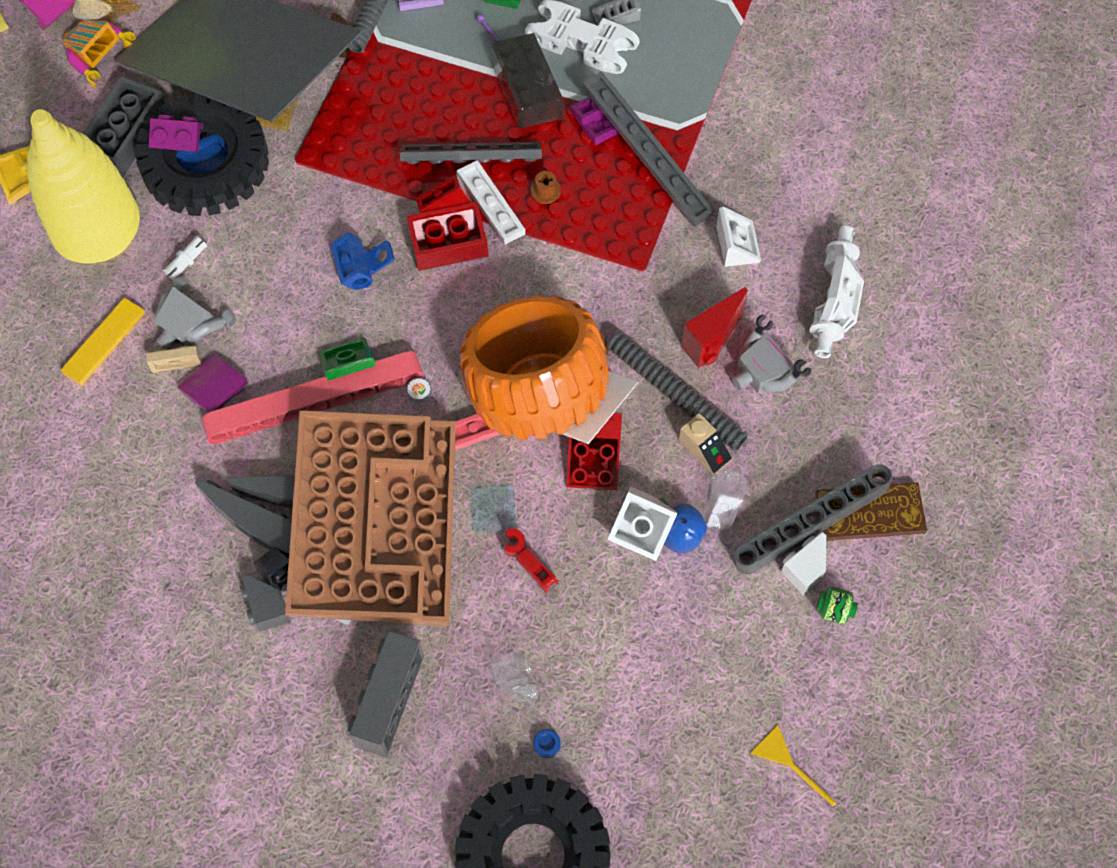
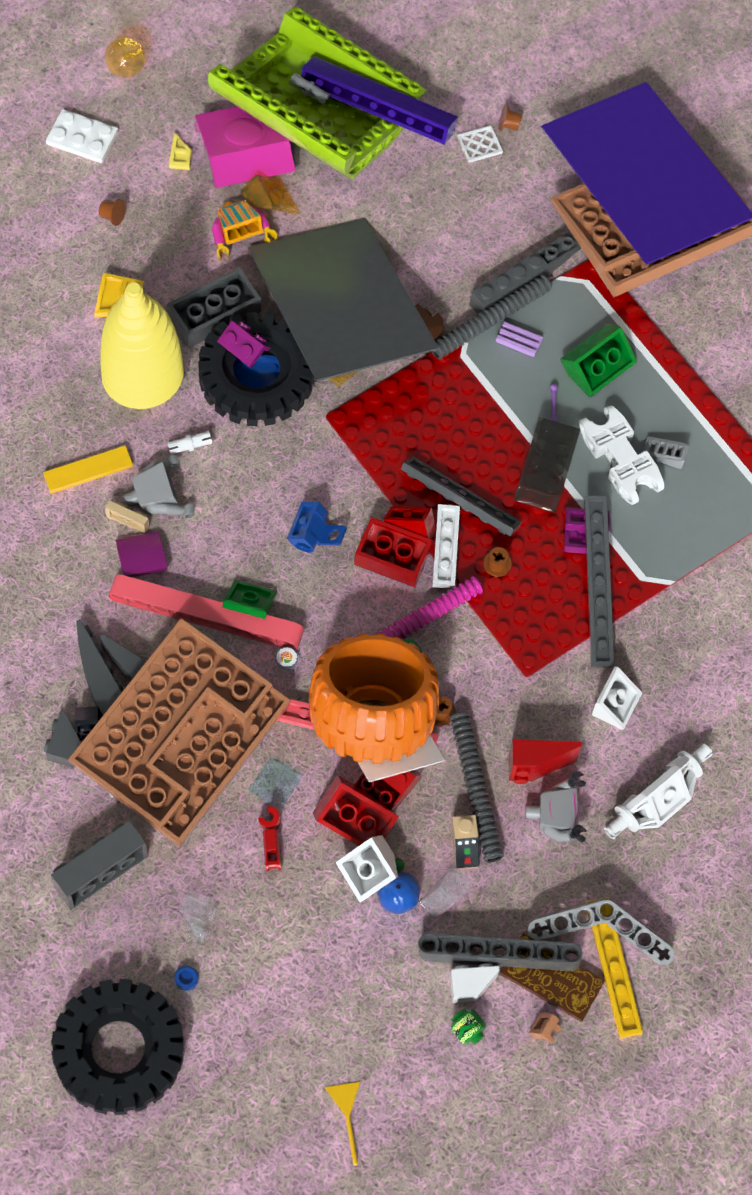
camera: 30 degrees right, 0 degrees up
(523, 259) = (434, 609): none -> dark pink piece
(588, 485) = (353, 812): none -> red slope
(871, 433) = (597, 918): none -> light grey beam
(900, 558) = (544, 1026): none -> nougat tile
(915, 467) = (616, 977): none -> yellow tile

